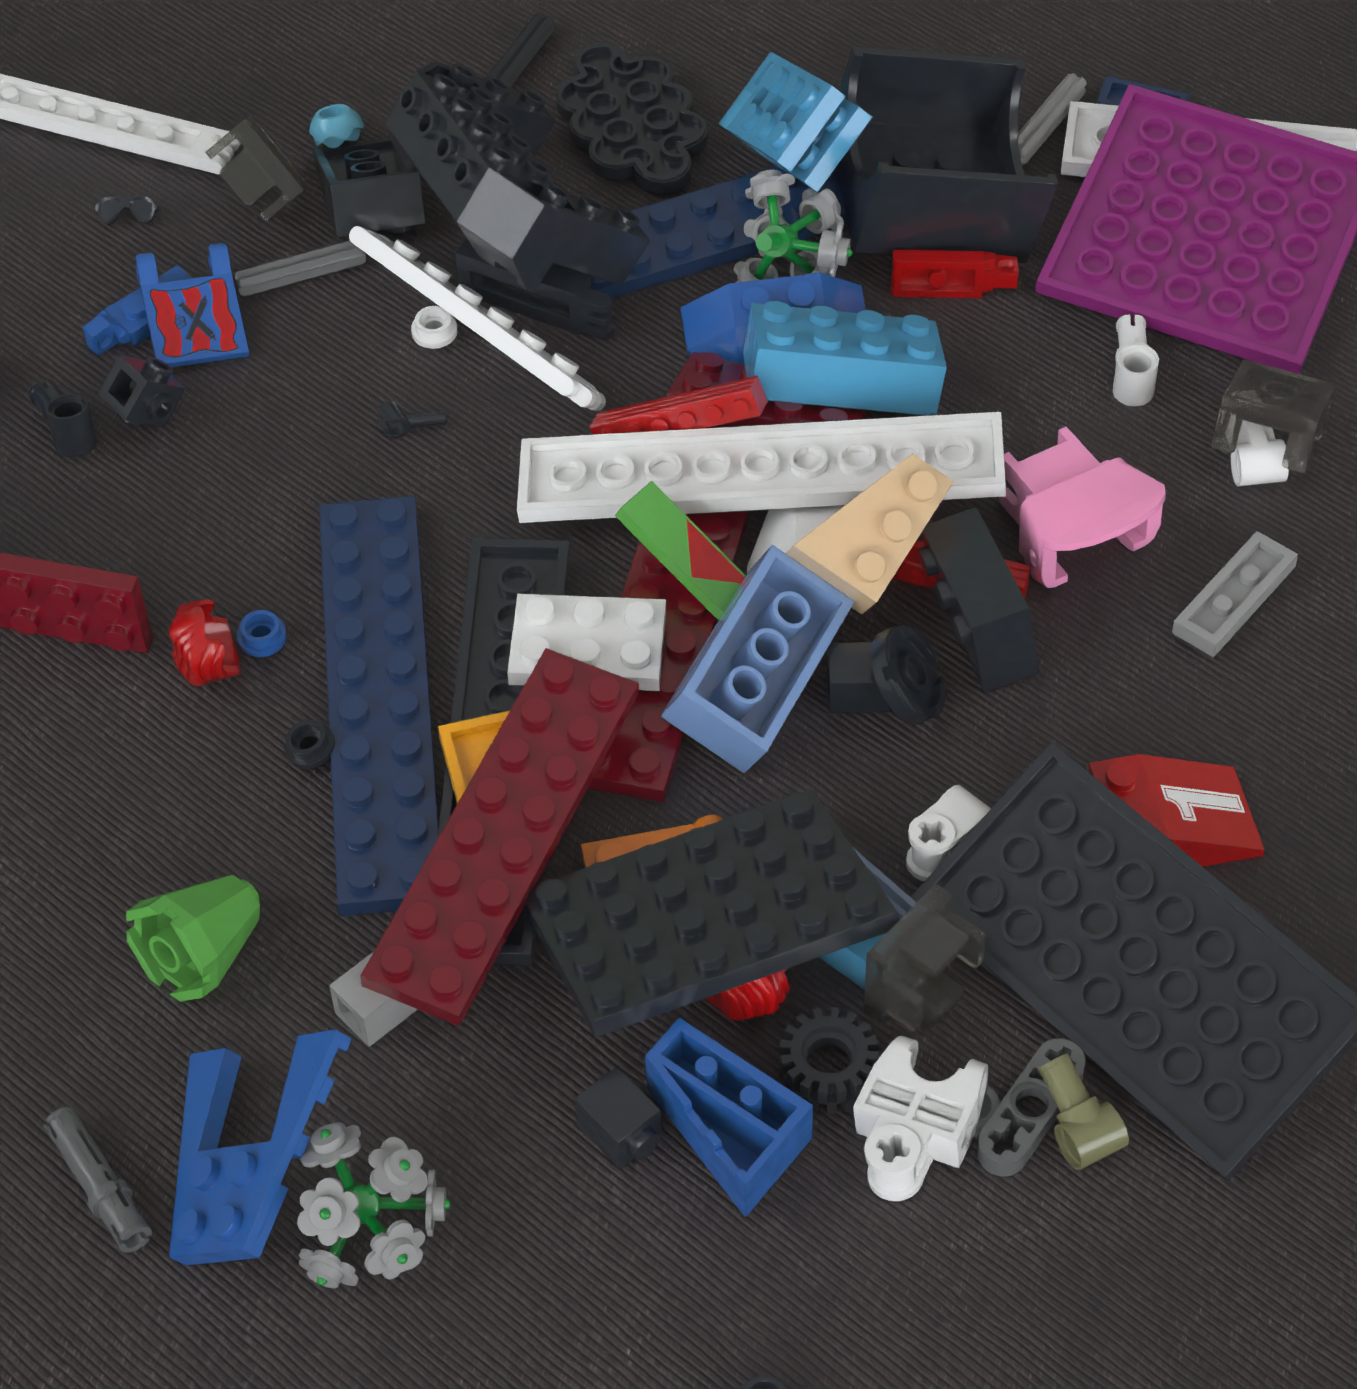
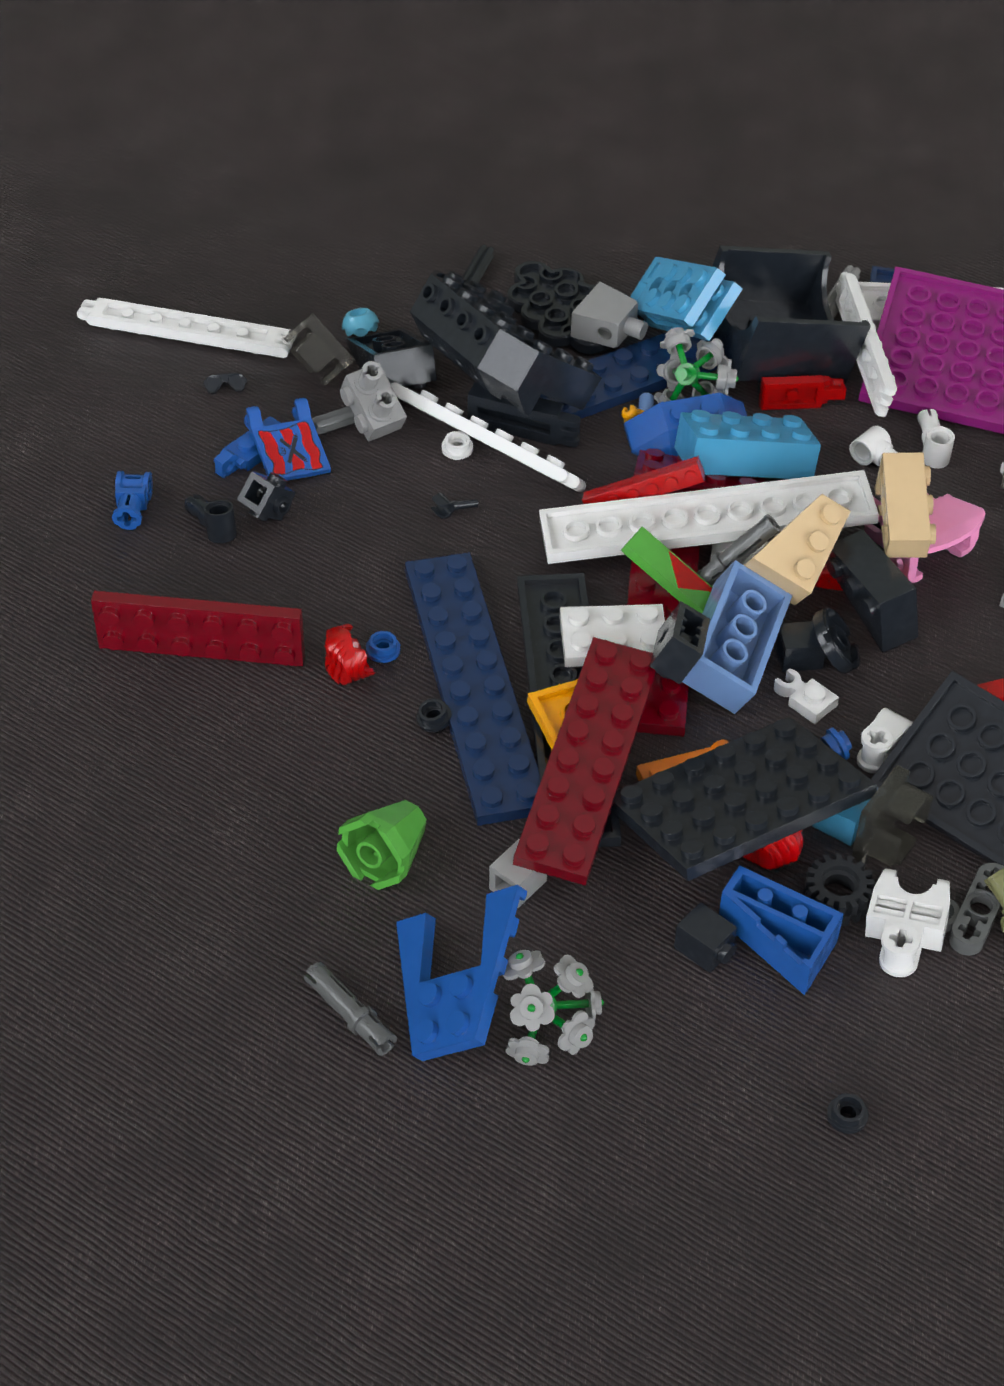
camera: 10 degrees left, 5 degrees down
(320, 254) = (372, 401): none -> light grey brick
(664, 668) = (680, 643): none -> black brick
(685, 141) = (607, 317): none -> light grey torso
(721, 276) = (646, 401): none -> arm
(791, 524) = (740, 549): none -> dark grey pin
(855, 759) = (808, 698): none -> white plate
(877, 835) = (838, 742): none -> blue plate
(1038, 477) = (905, 505): none -> tan wedge
(1044, 370) = (871, 446): none -> white pin
(1057, 236) = (871, 359): none -> white hinge

